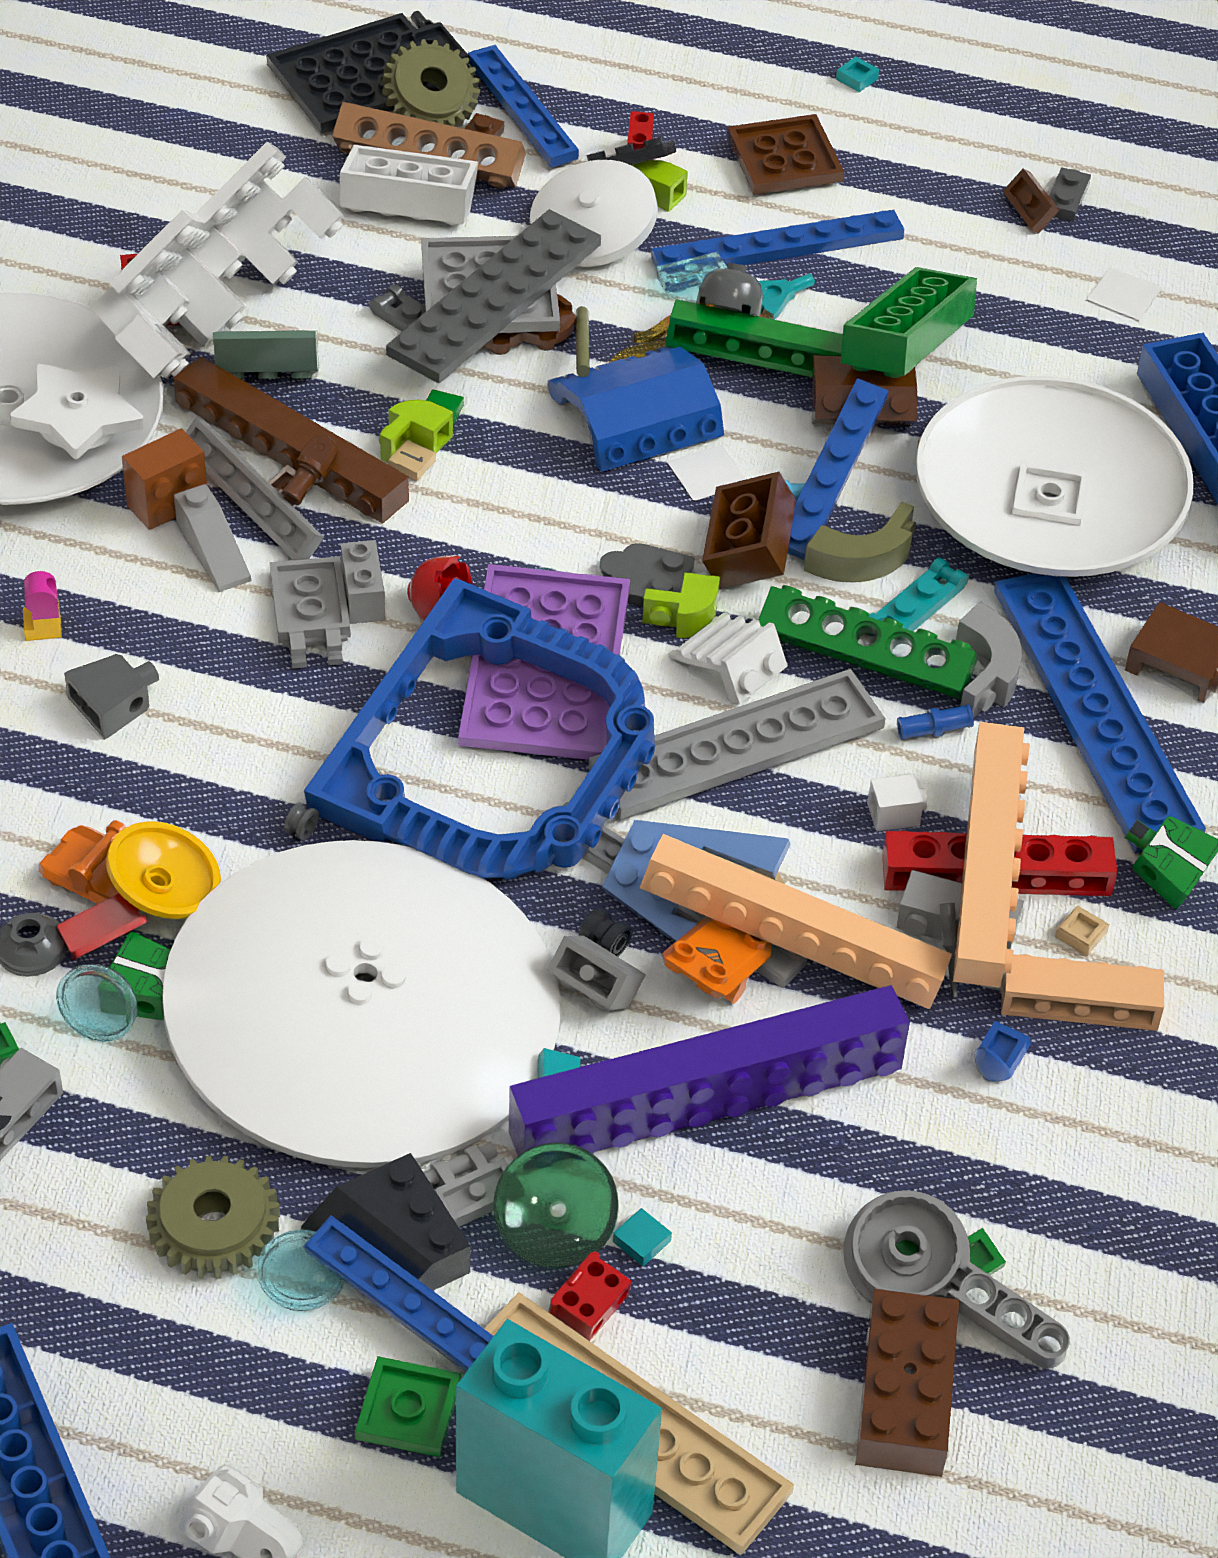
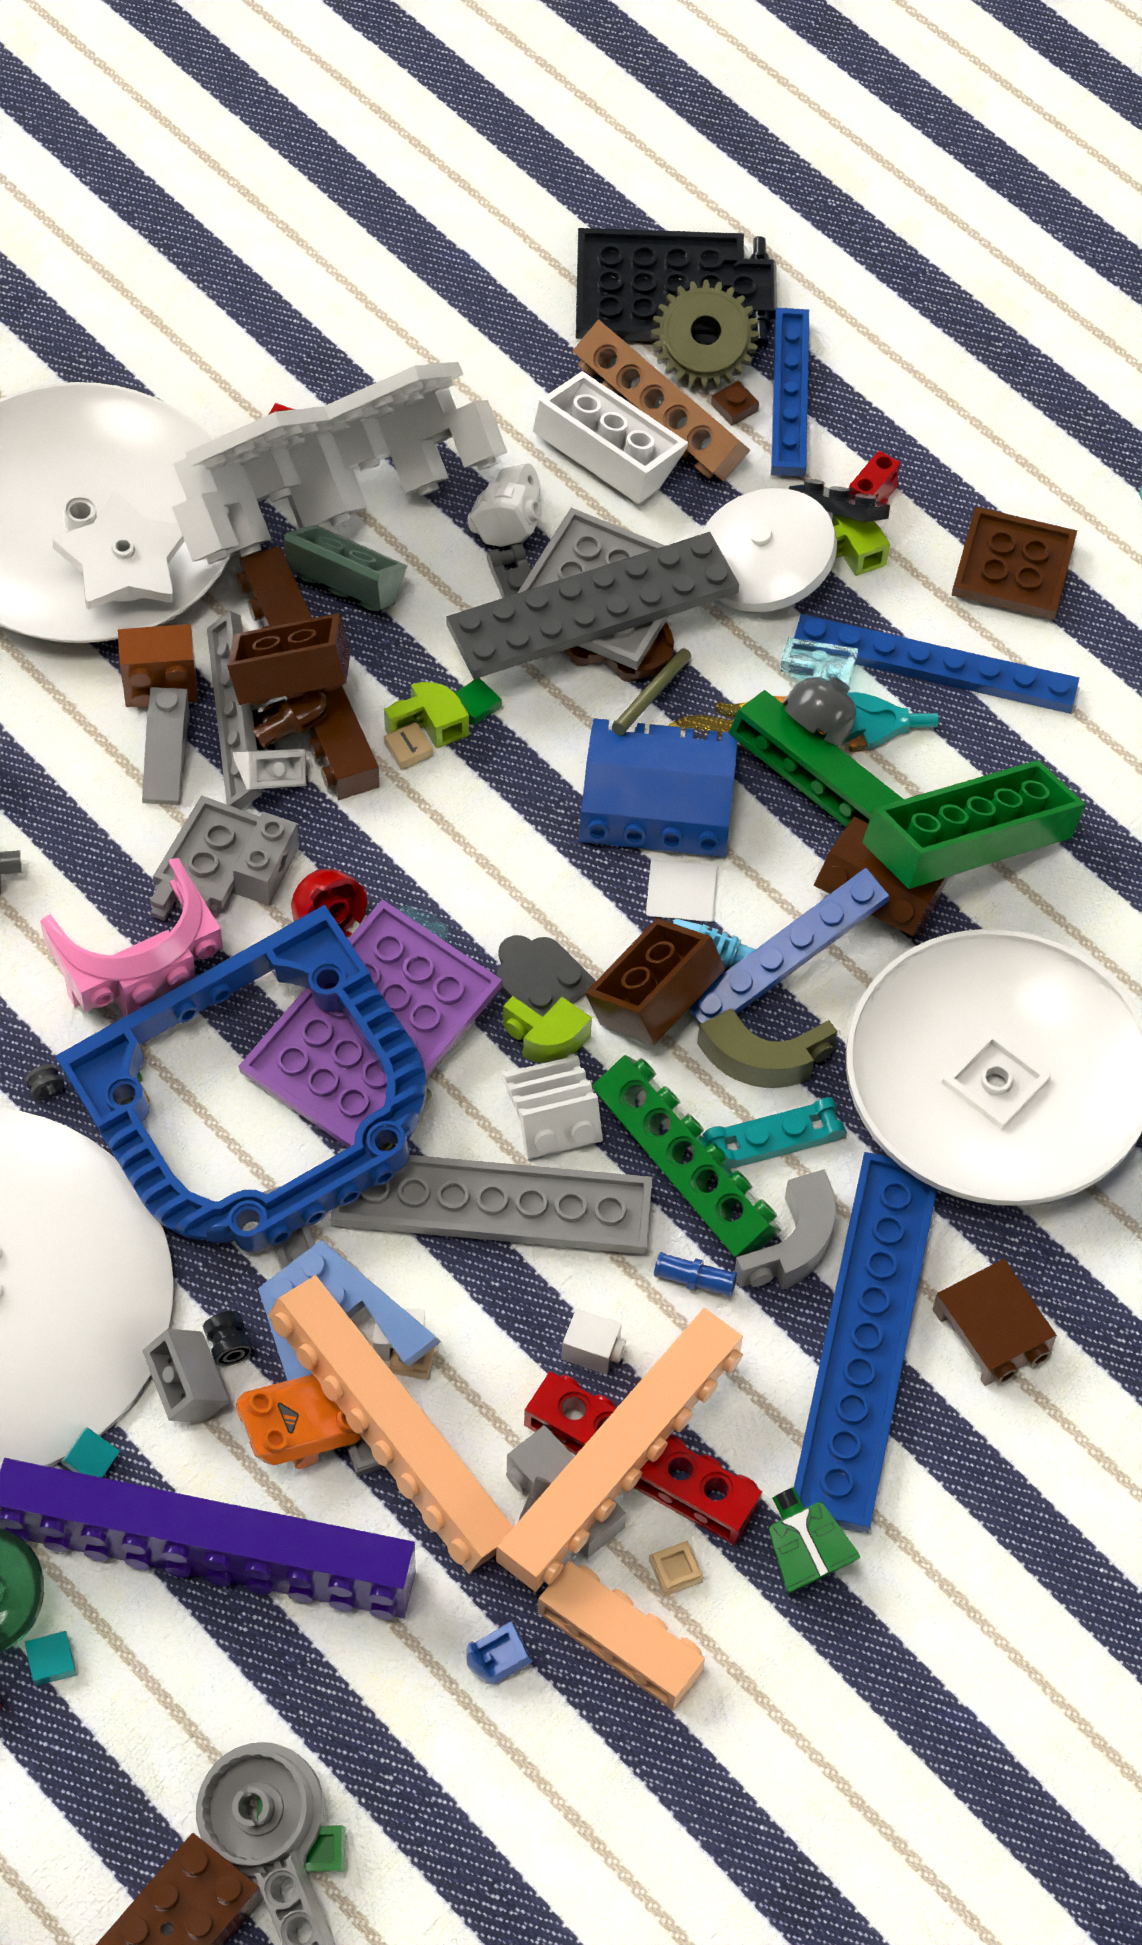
camera: 30 degrees right, 10 degrees up
(287, 419) = (289, 659): none -> reddish brown brick
(318, 513) = (272, 768): none -> white slope
(325, 704) = (144, 969): none -> bright pink piece
(367, 262) = (508, 507): none -> white piece

